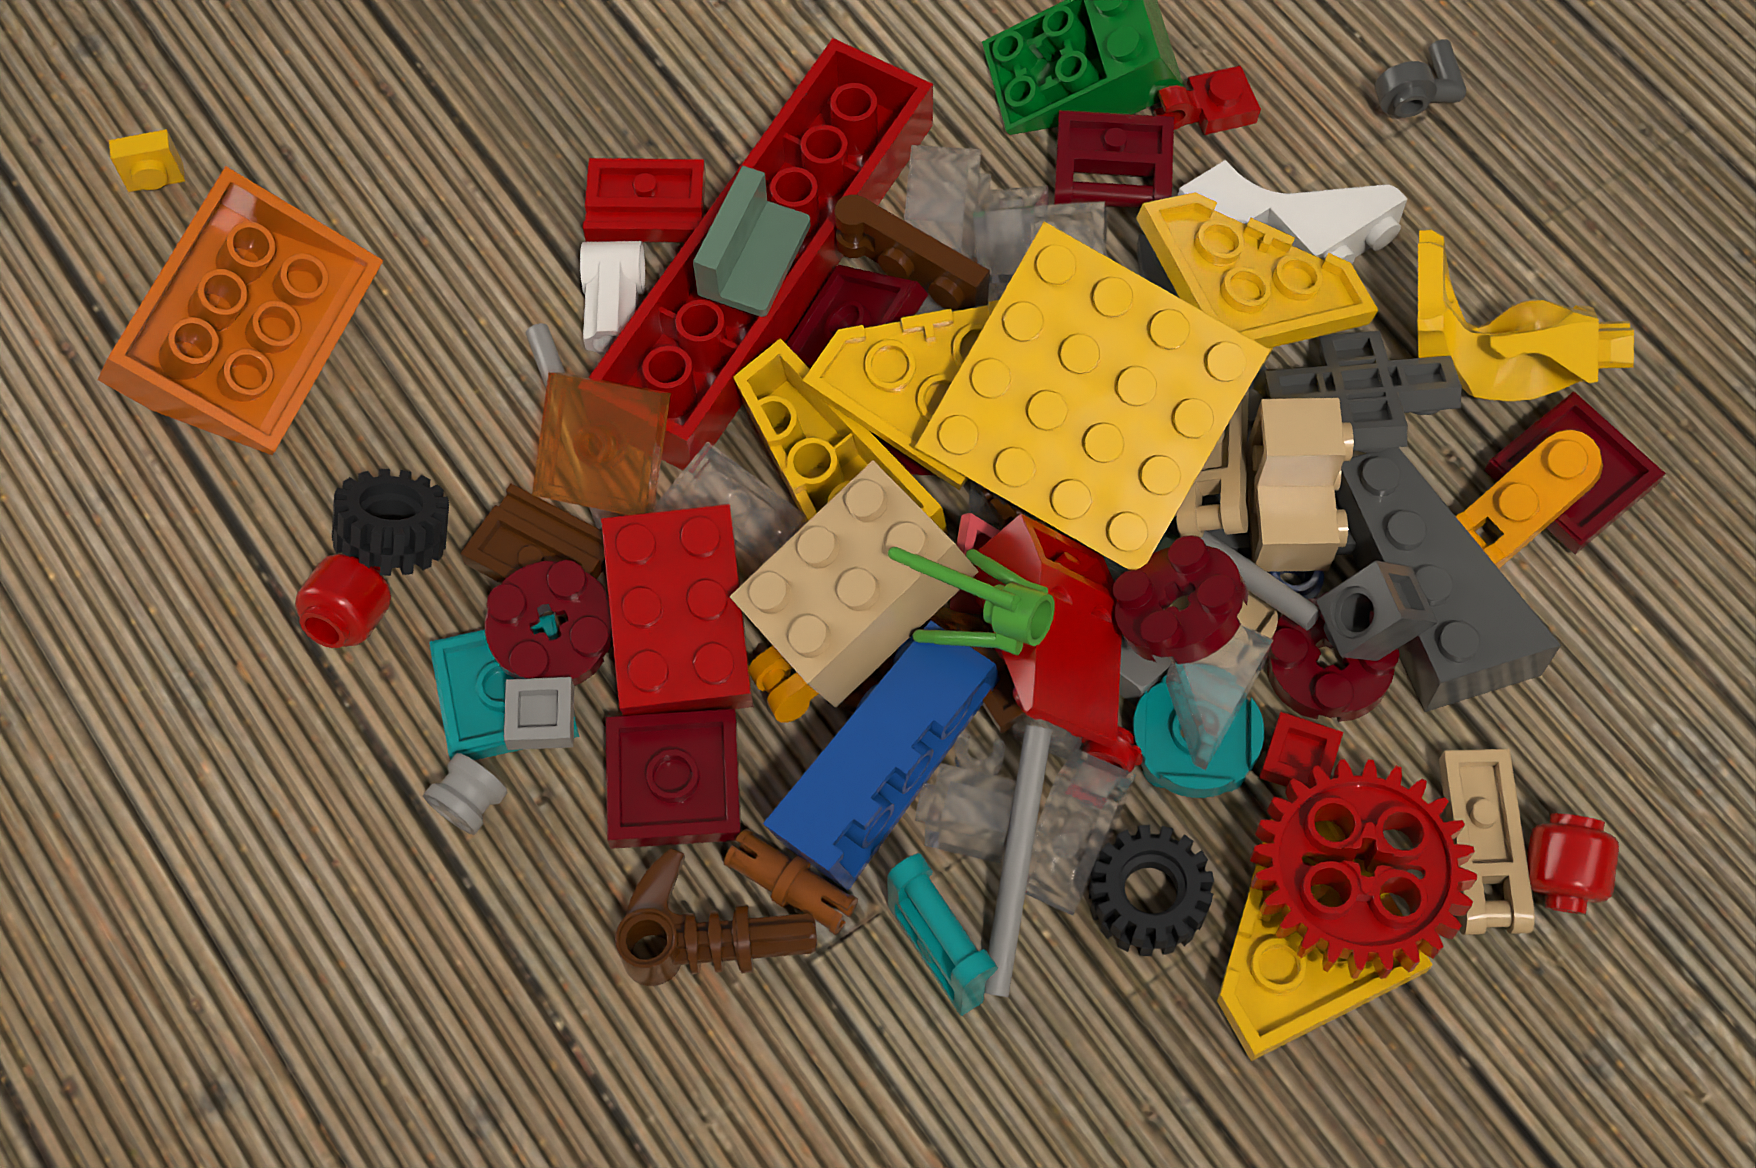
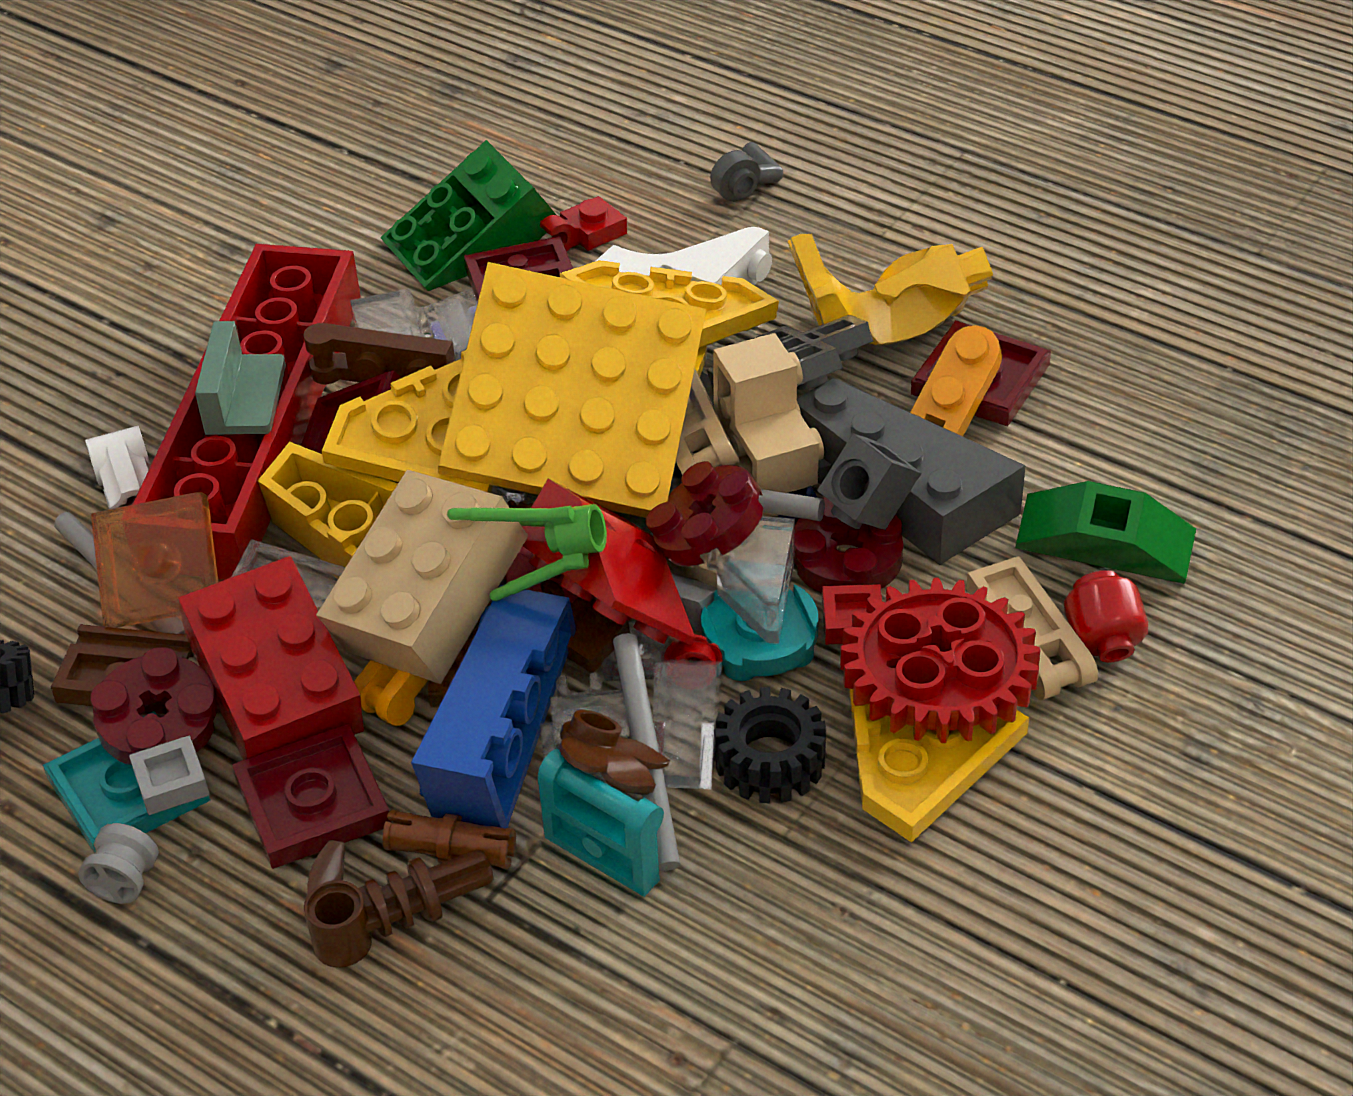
camera: 20 degrees left, 20 degrees down
(643, 199) = (128, 400): red plate -> none
(969, 873) = (595, 746): none -> reddish brown plate
(1621, 751) = (1107, 529): none -> green slope

